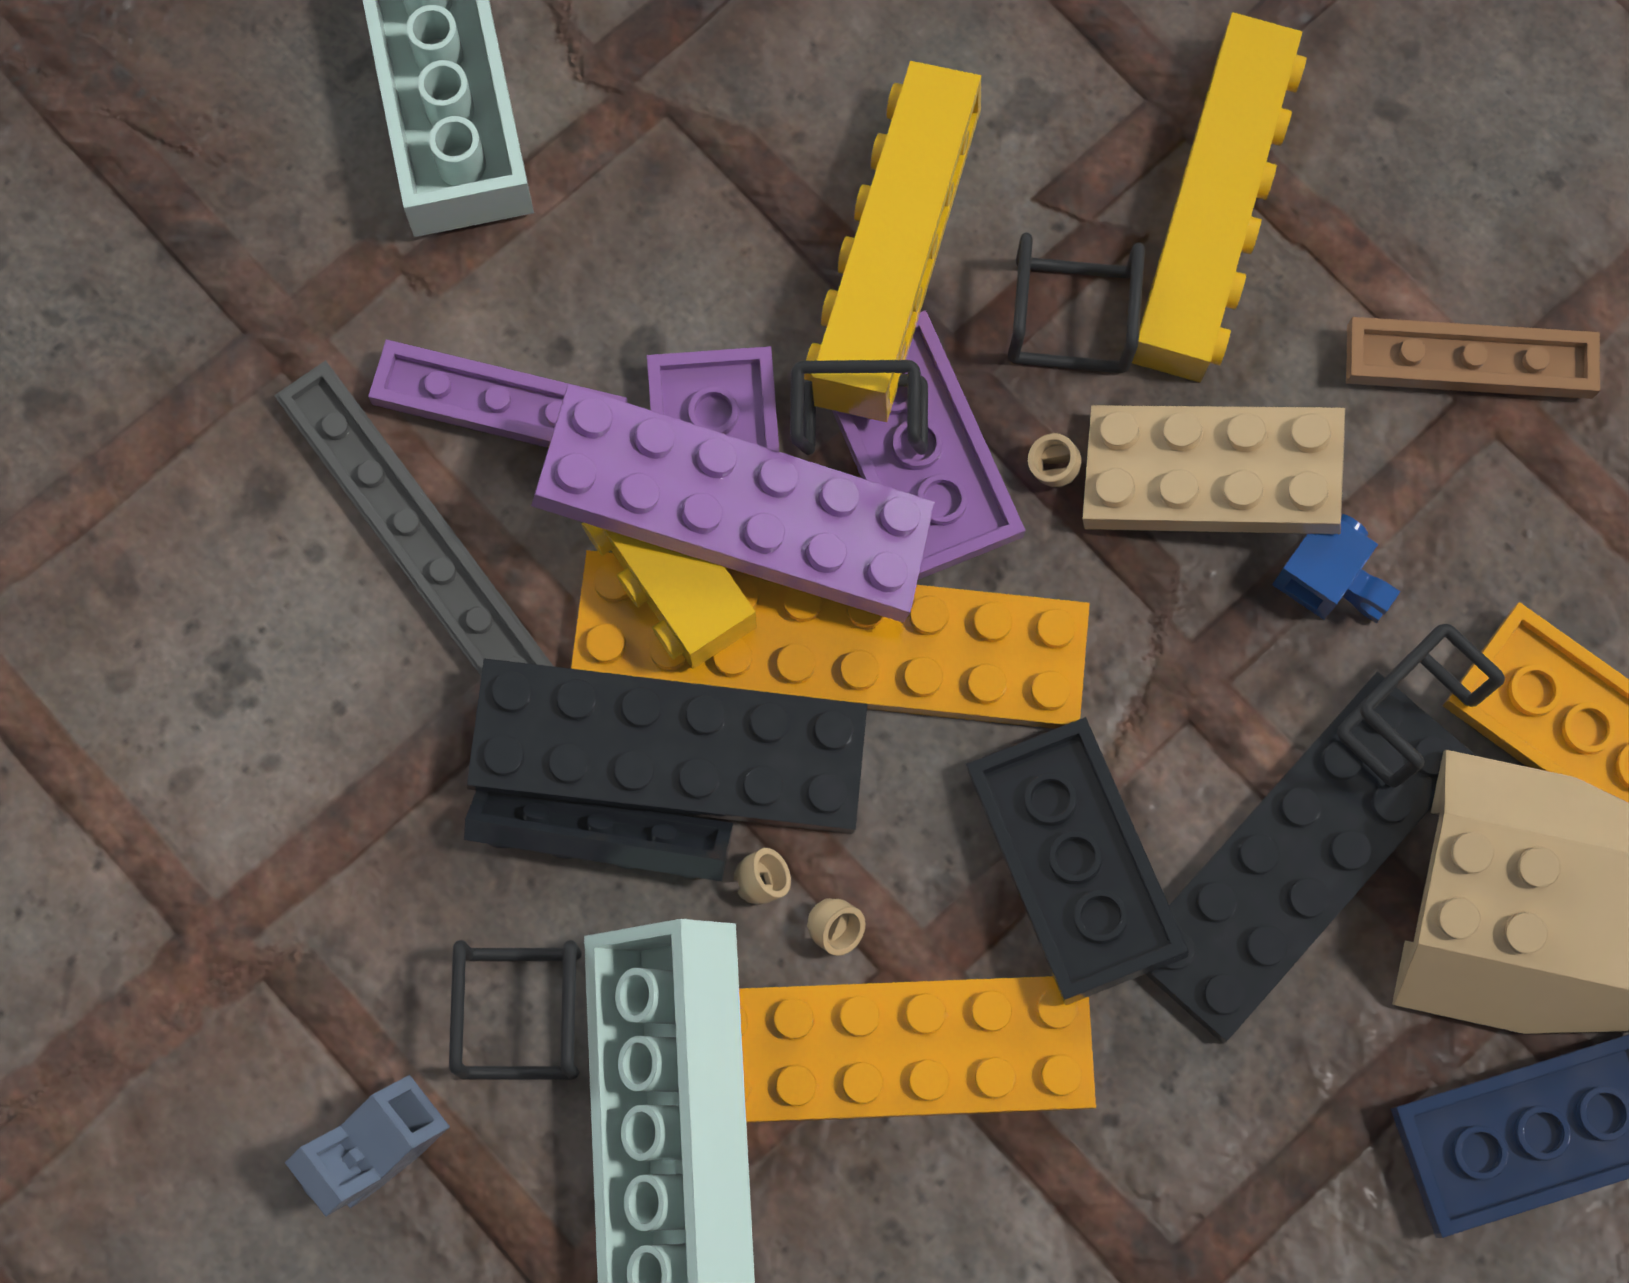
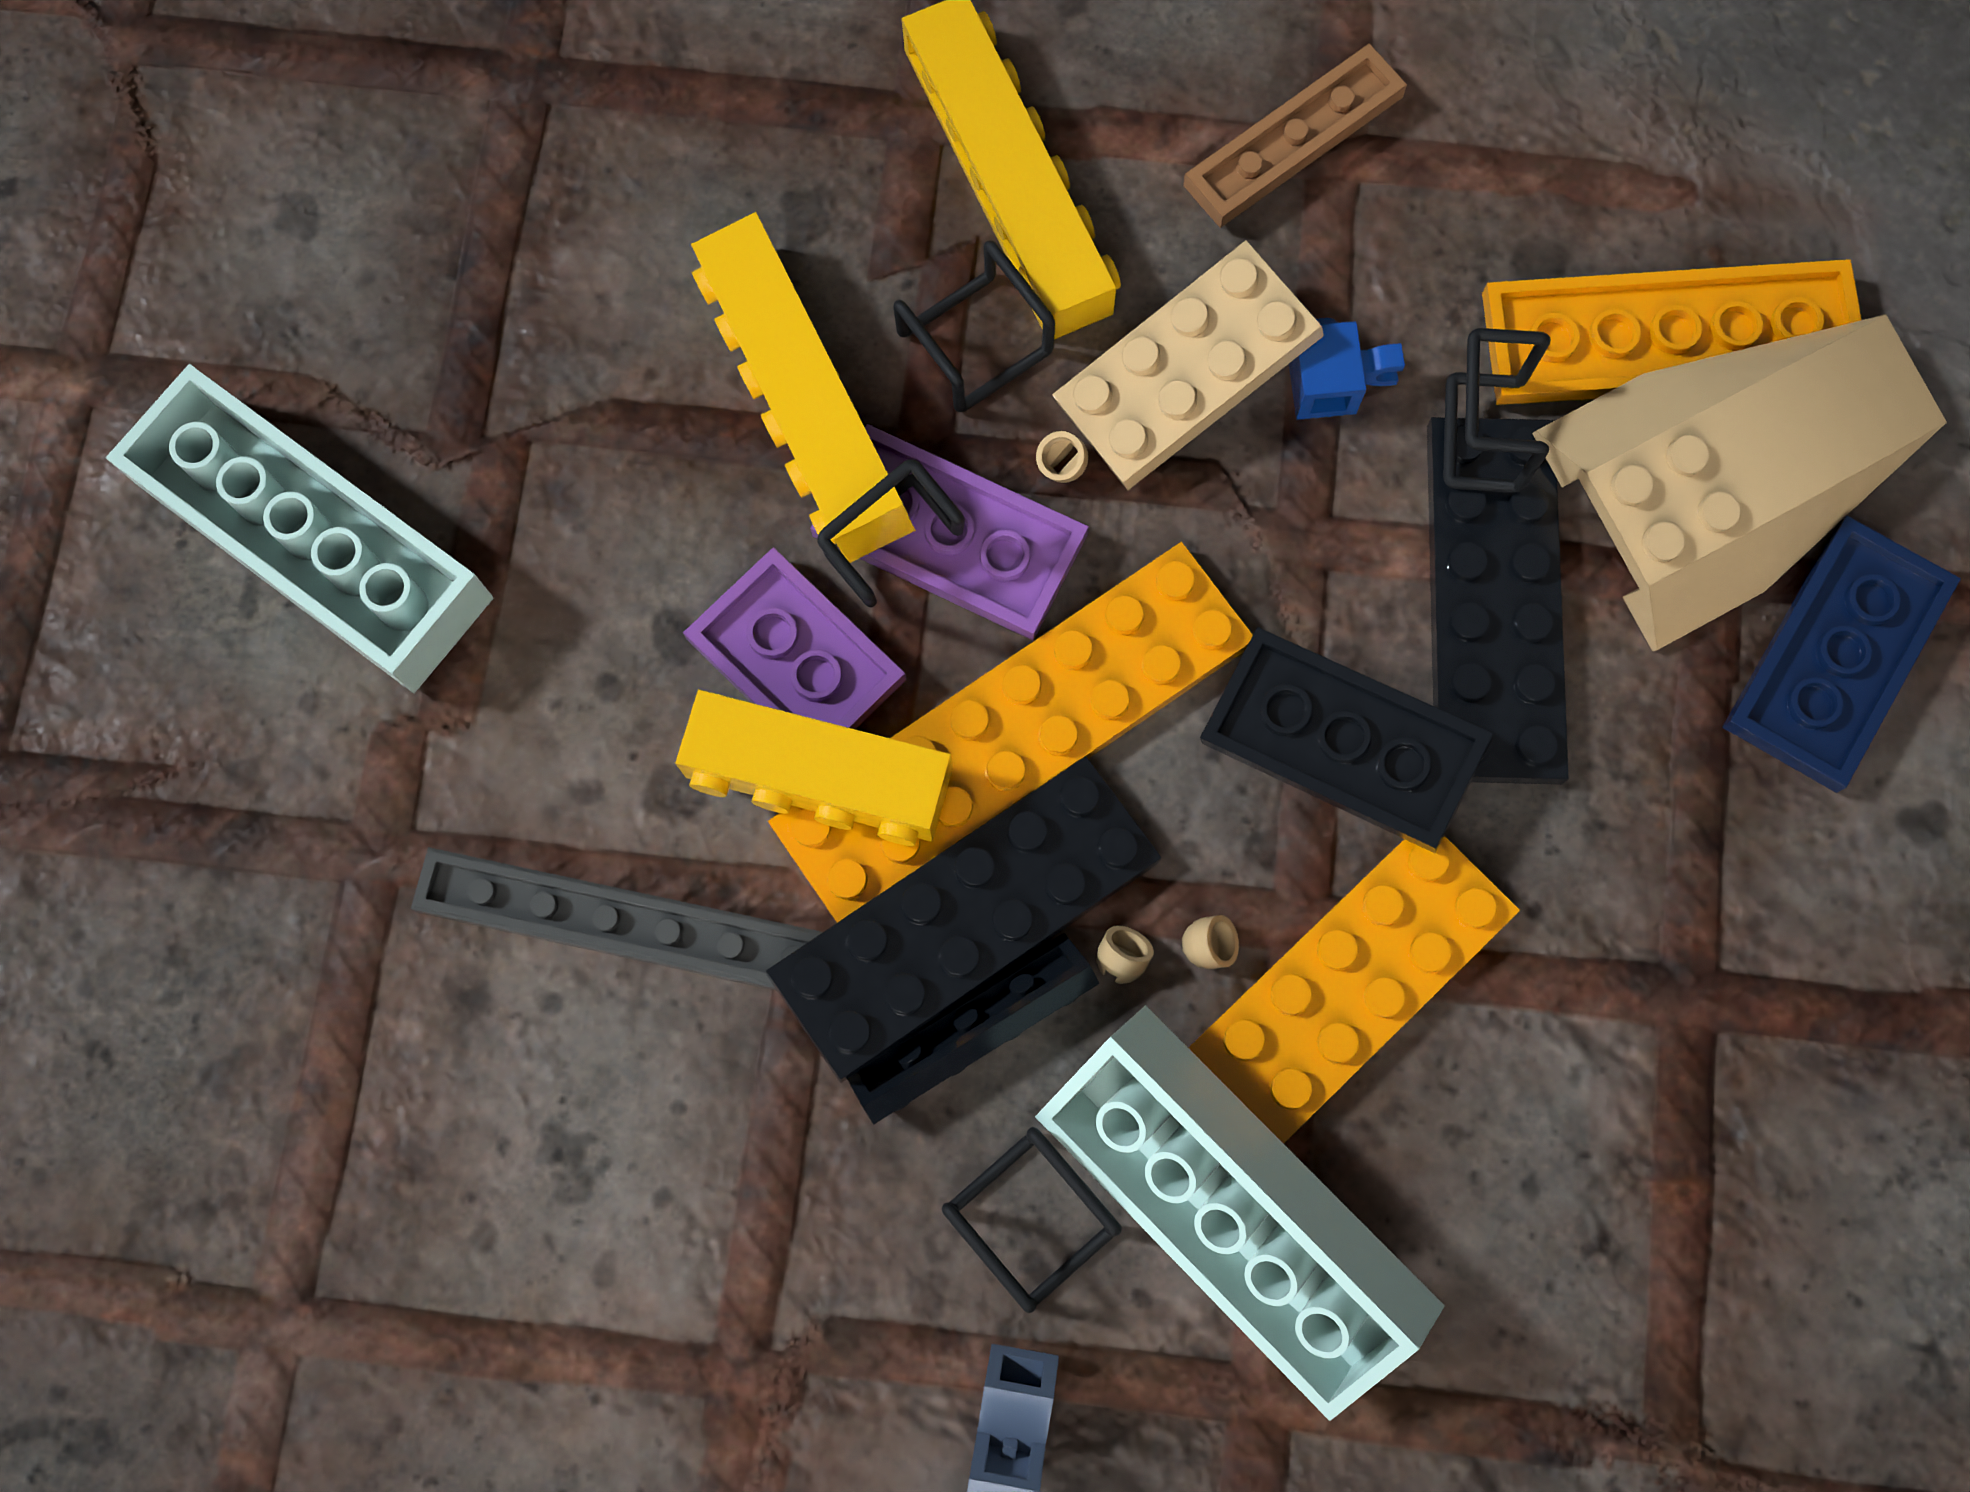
camera: 35 degrees left, 0 degrees up
(469, 393) = (583, 768): medium lavender plate -> none
(734, 503) = (856, 687): medium lavender plate -> none

